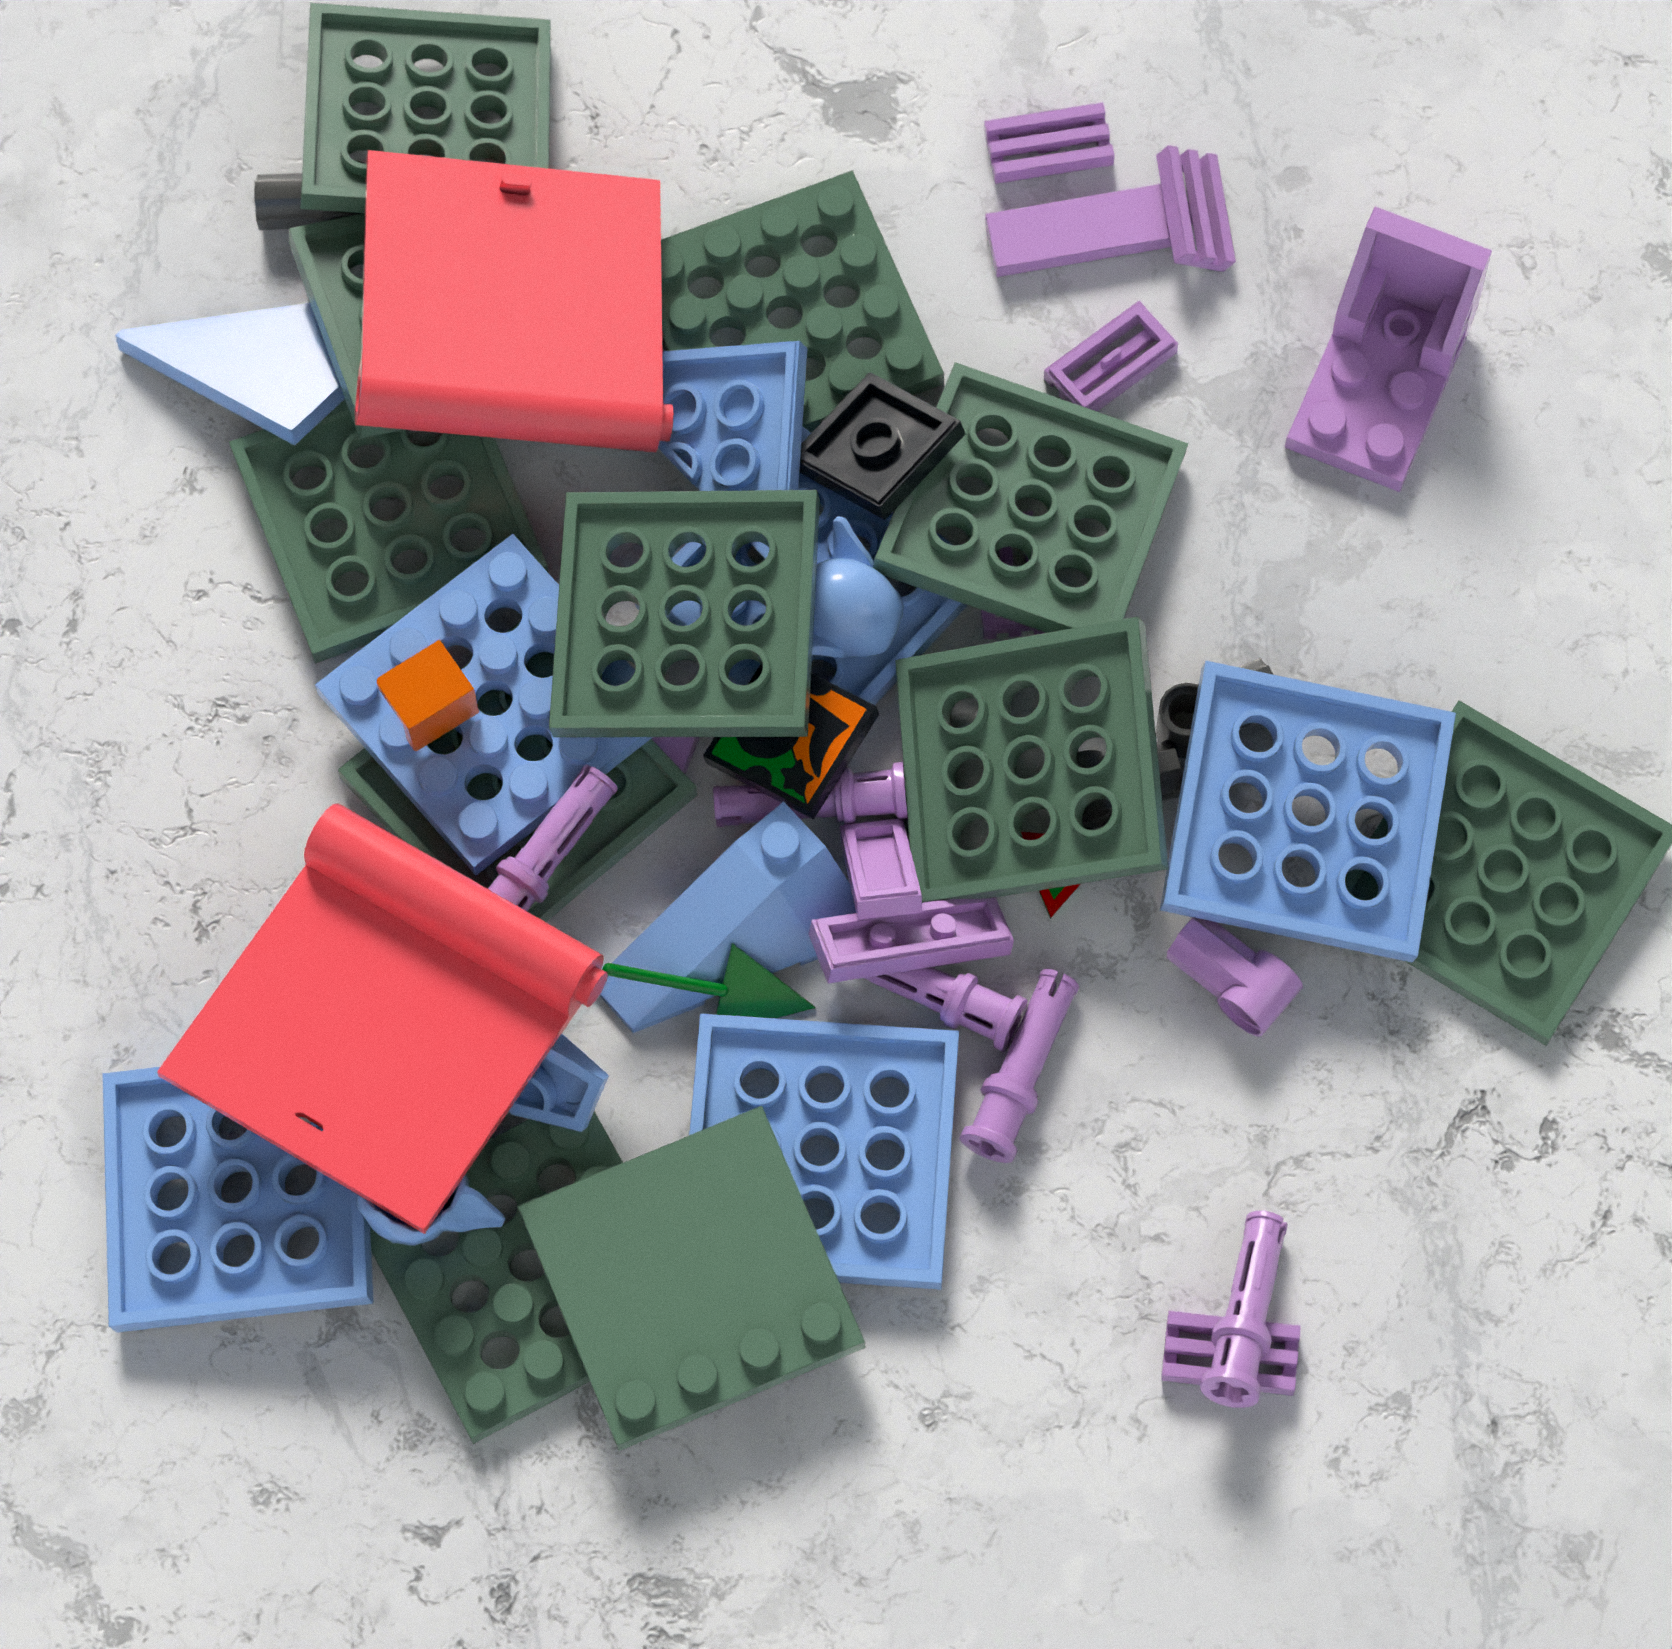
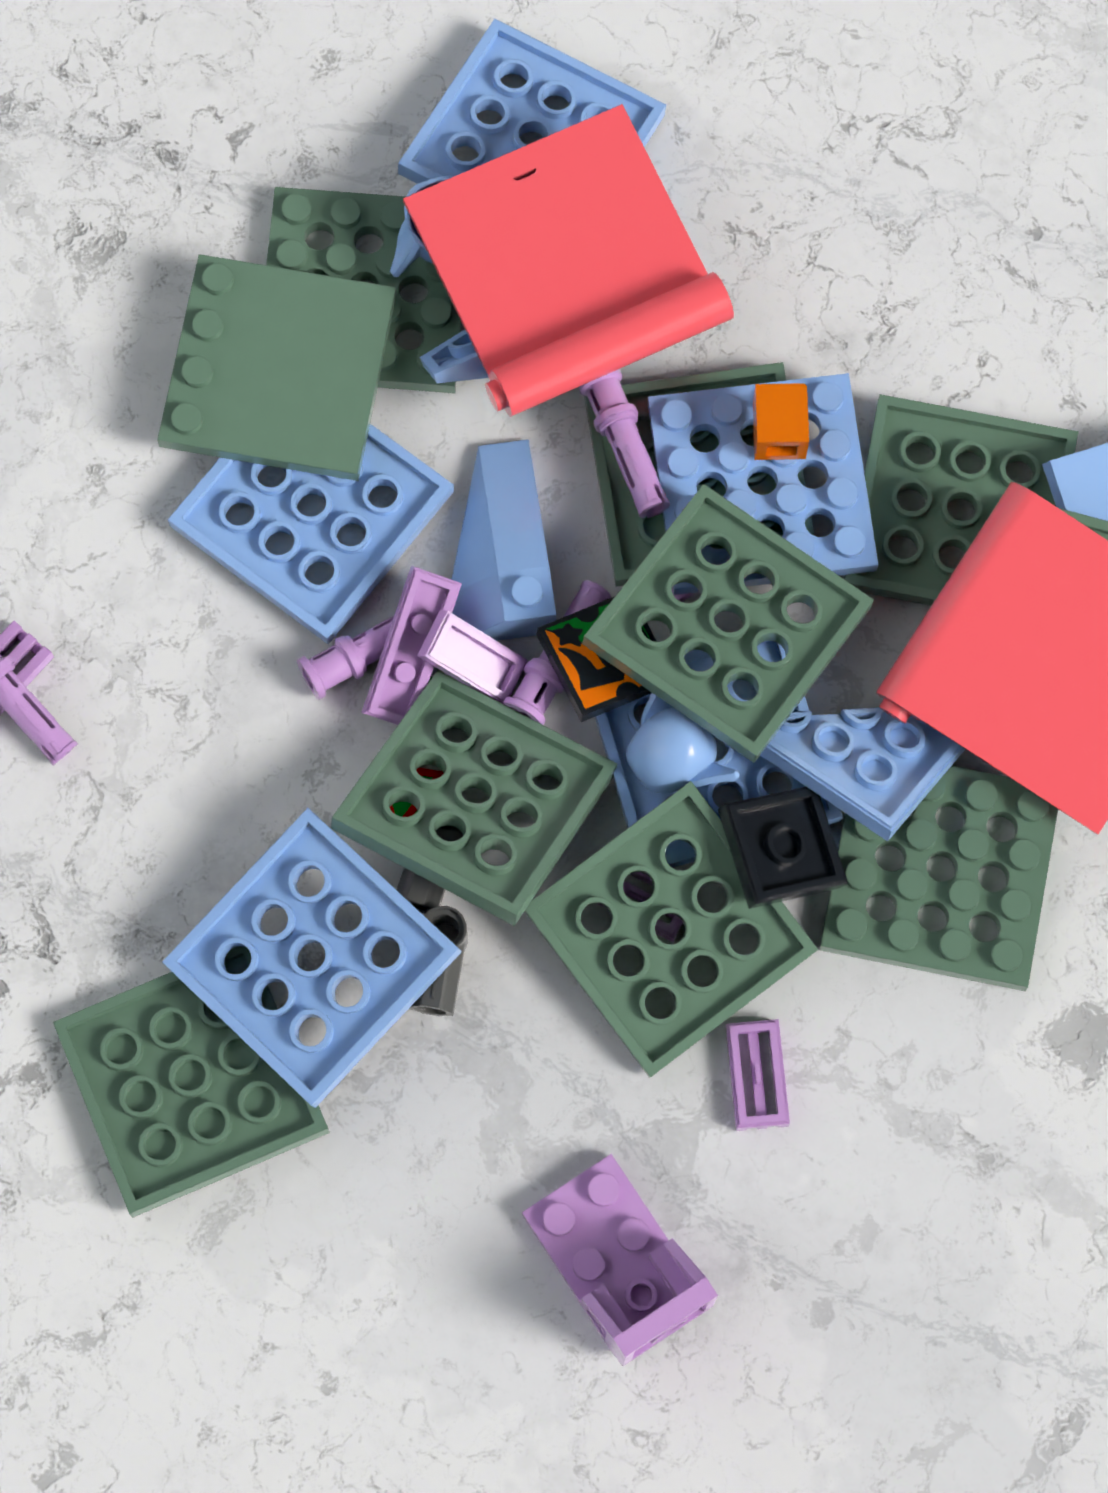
camera: 120 degrees right, 5 degrees up
(745, 991) = (451, 525): green piece -> none
(1011, 1091) = (265, 647): lavender pin -> none
(1048, 133) = (980, 1106): lavender tile -> none
(1078, 230) = (876, 1123): lavender tile -> none
(1204, 209) = (829, 1230): lavender tile -> none
(1247, 984) = (229, 848): lavender piece -> none

